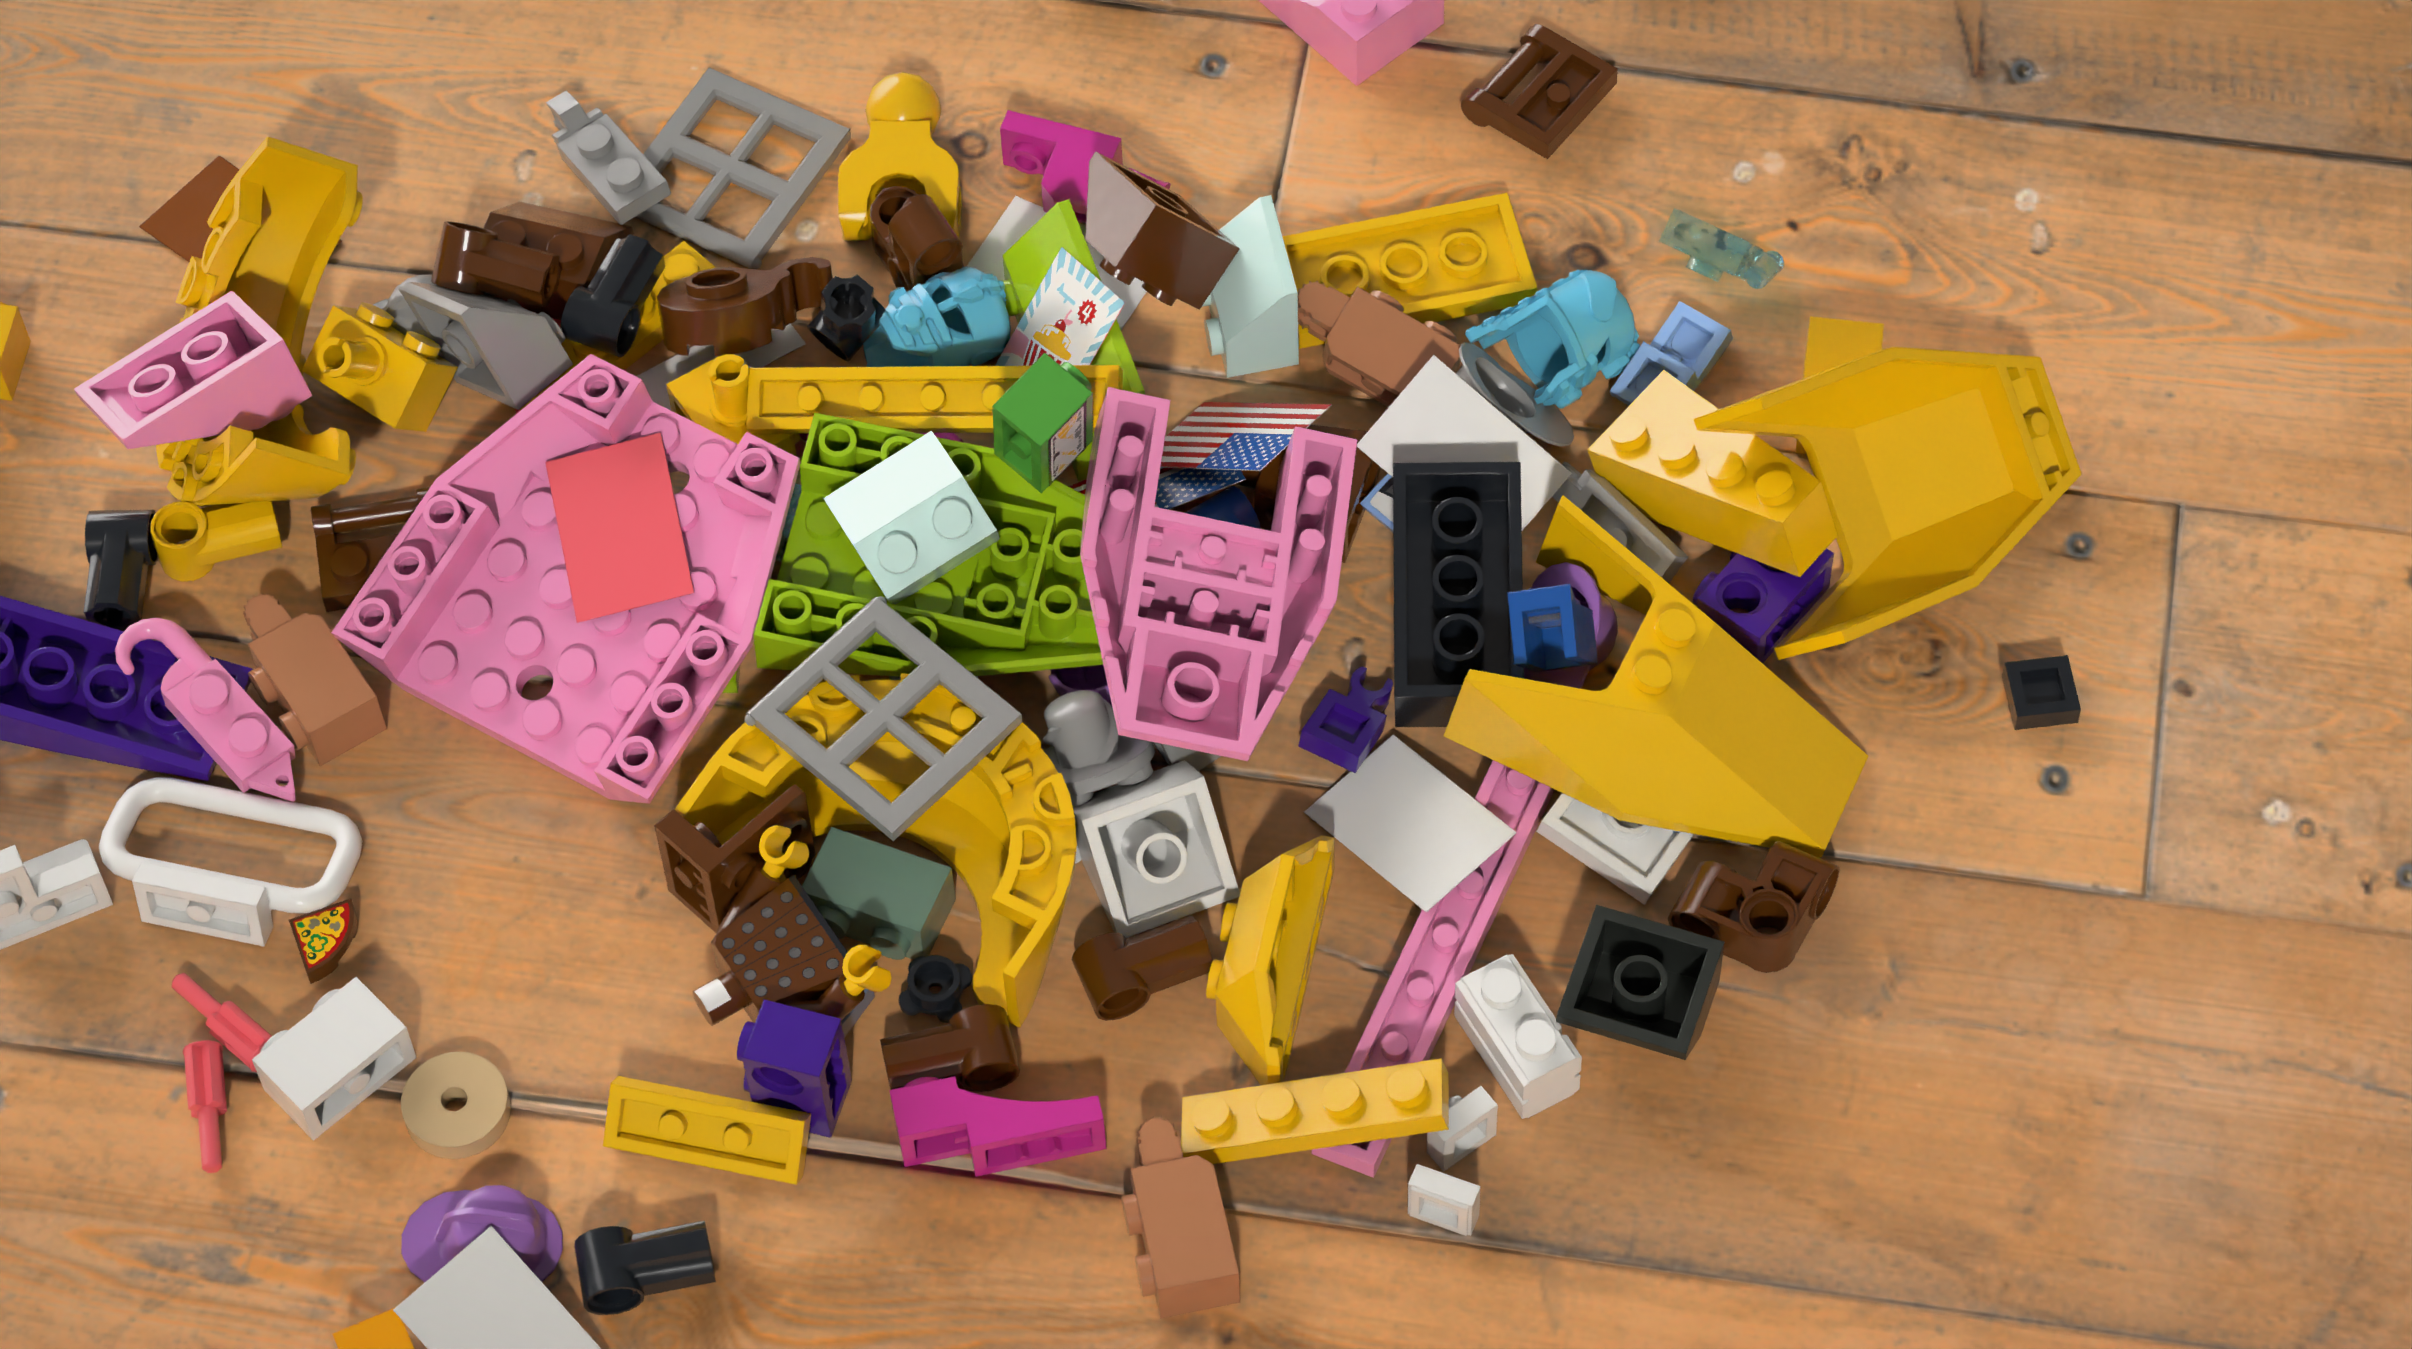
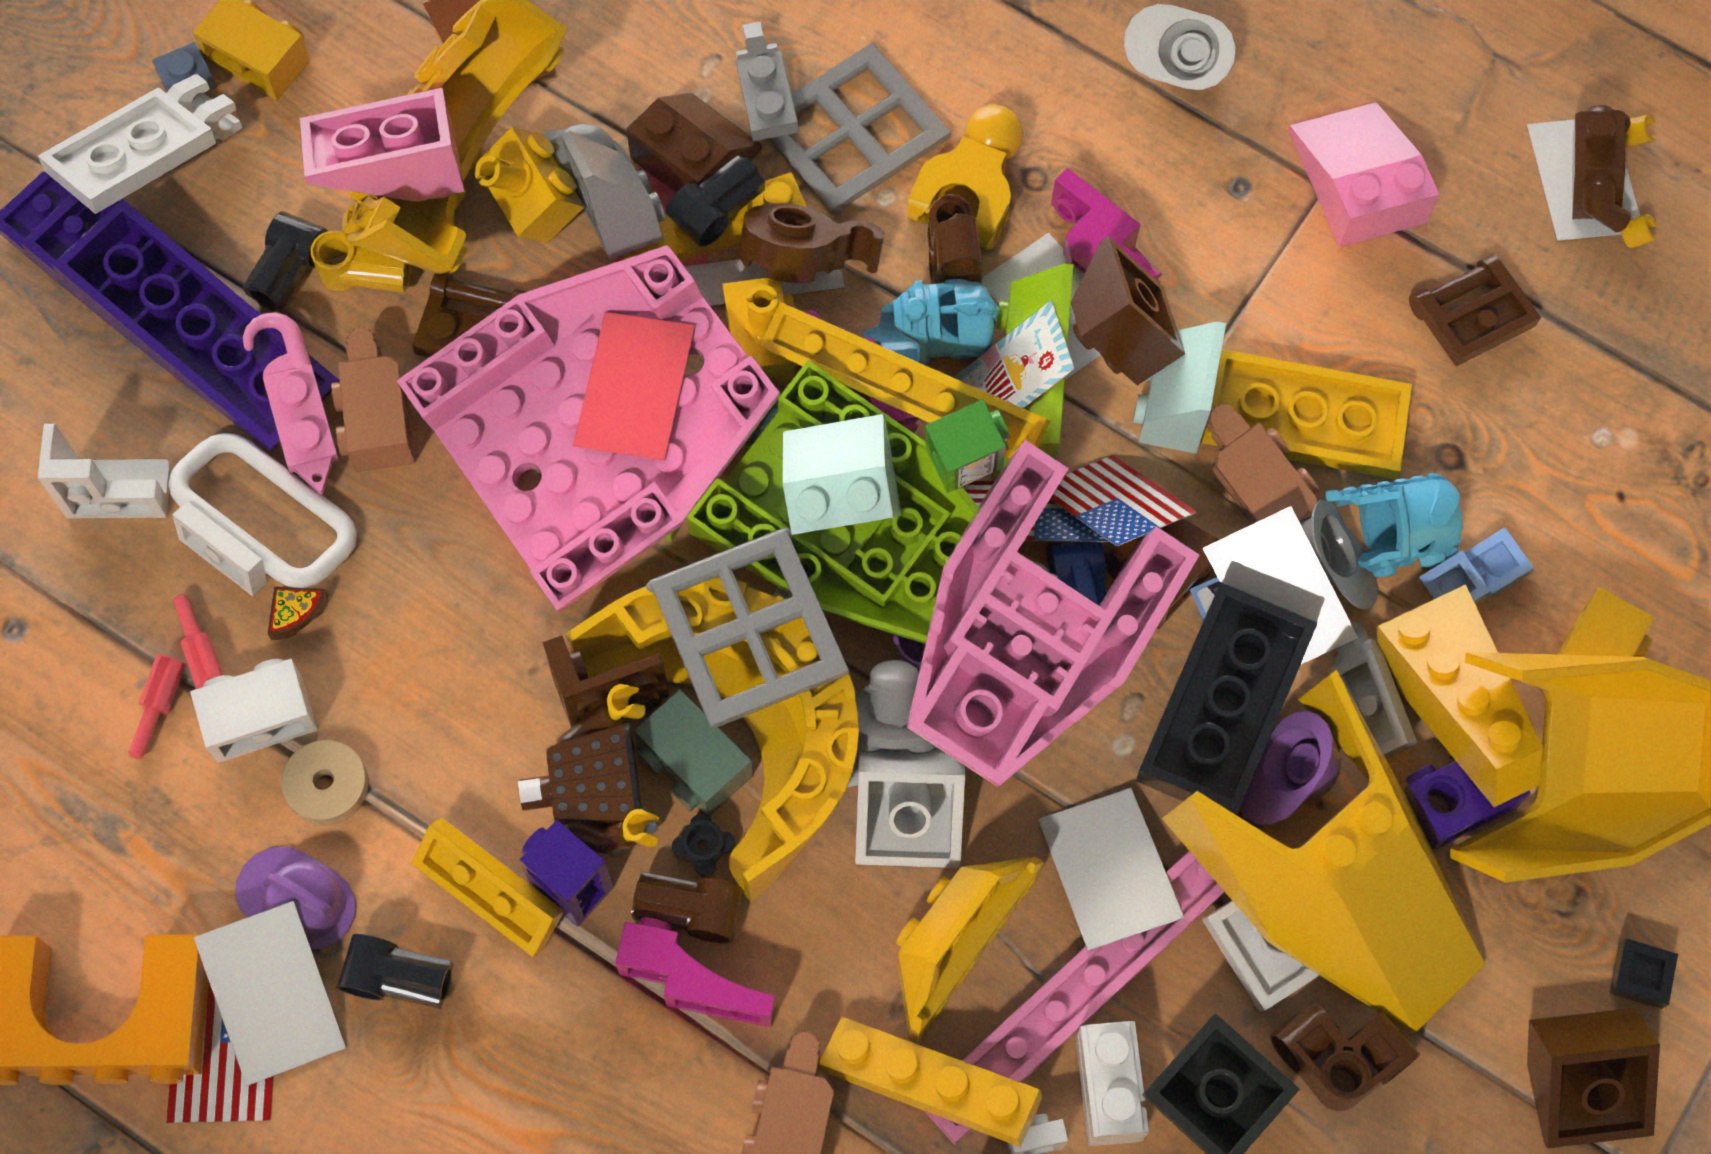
camera: 20 degrees right, 10 degrees up
(479, 262) = (627, 136): reddish brown piece -> none
(846, 316) = (877, 283): black piece -> none
(1125, 972) = (844, 895): reddish brown piece -> none
(1347, 726) = (1099, 767): dark purple plate -> none
(1551, 629) = (1280, 772): blue window -> none
(1718, 251) = (1554, 499): clear light blue piece -> none
(2035, 816) = (1593, 1077): none -> reddish brown slope

